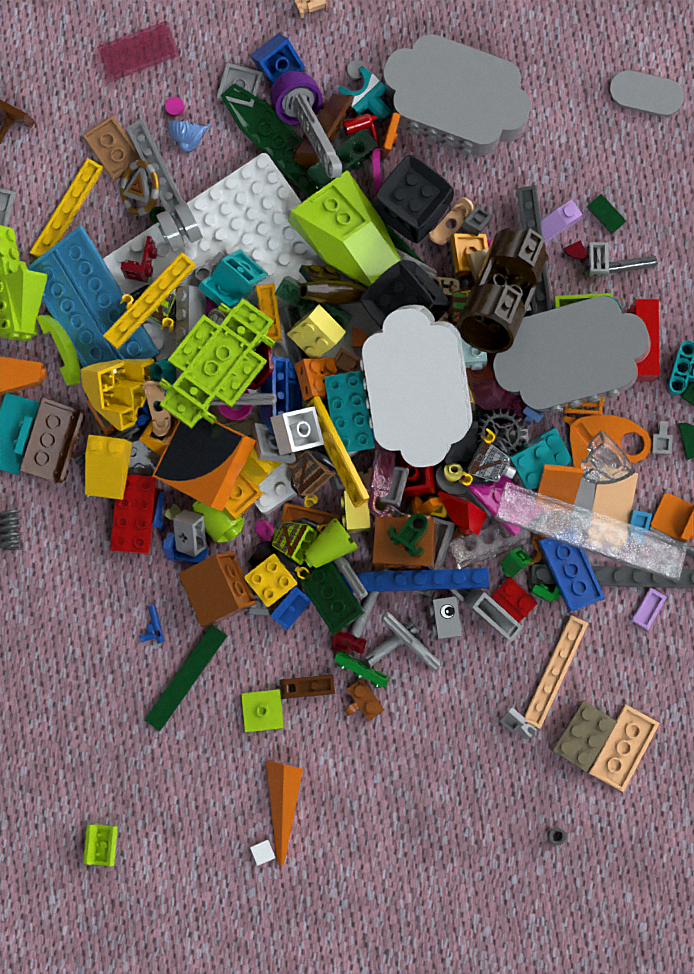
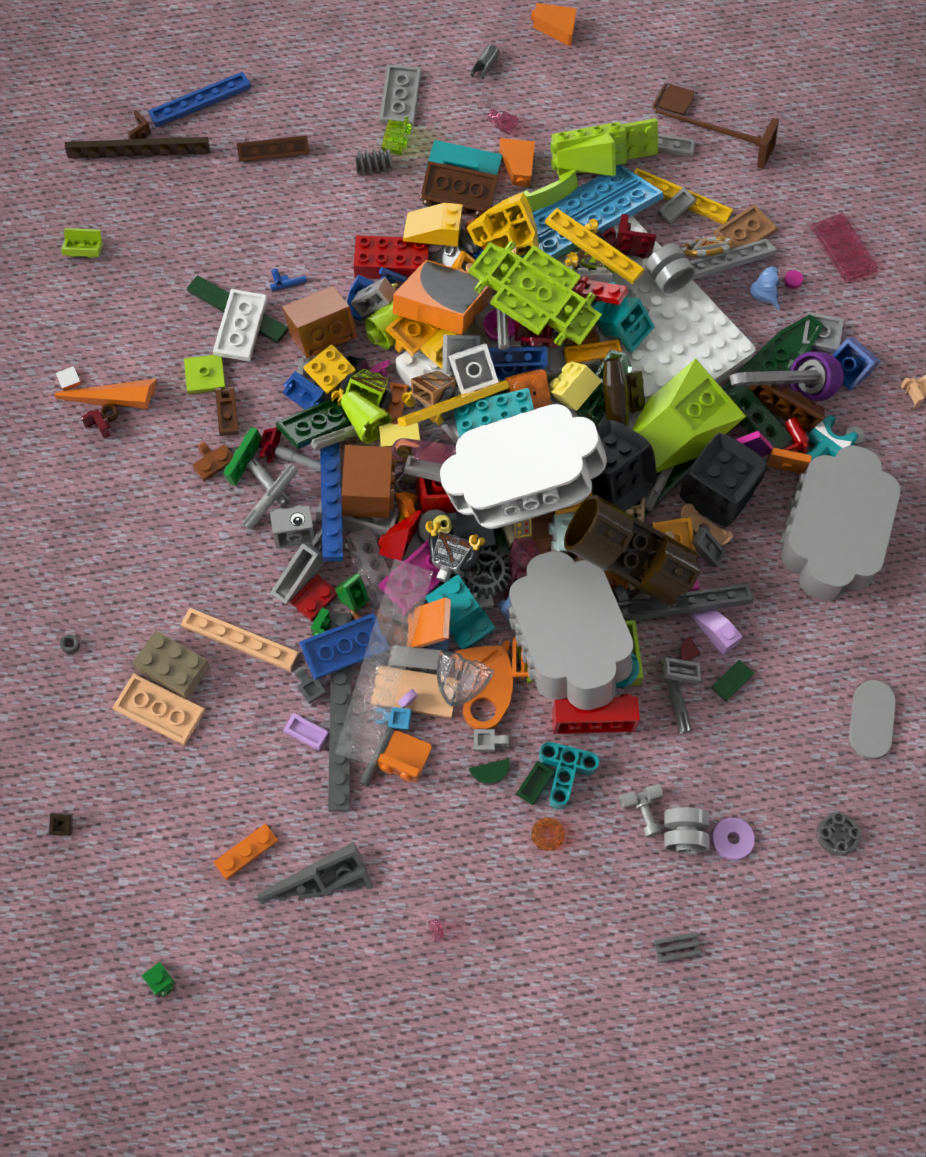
camera: 80 degrees right, 15 degrees down
(81, 214) = (676, 205): none -> light grey tile
(130, 285) = (610, 236): none -> dark red tile
(209, 673) = (240, 325): none -> white tile
(213, 295) = (603, 291): none -> red plate
(310, 808) = (104, 410): none -> reddish brown axle
(319, 814) = (94, 417): none -> dark red bracket
(410, 536) = (370, 473): dark green pin -> none
(516, 723) = (186, 600): light grey plate -> none
(607, 606) = (309, 688): none -> dark grey plate
(624, 512) = (408, 698): none -> lavender tile

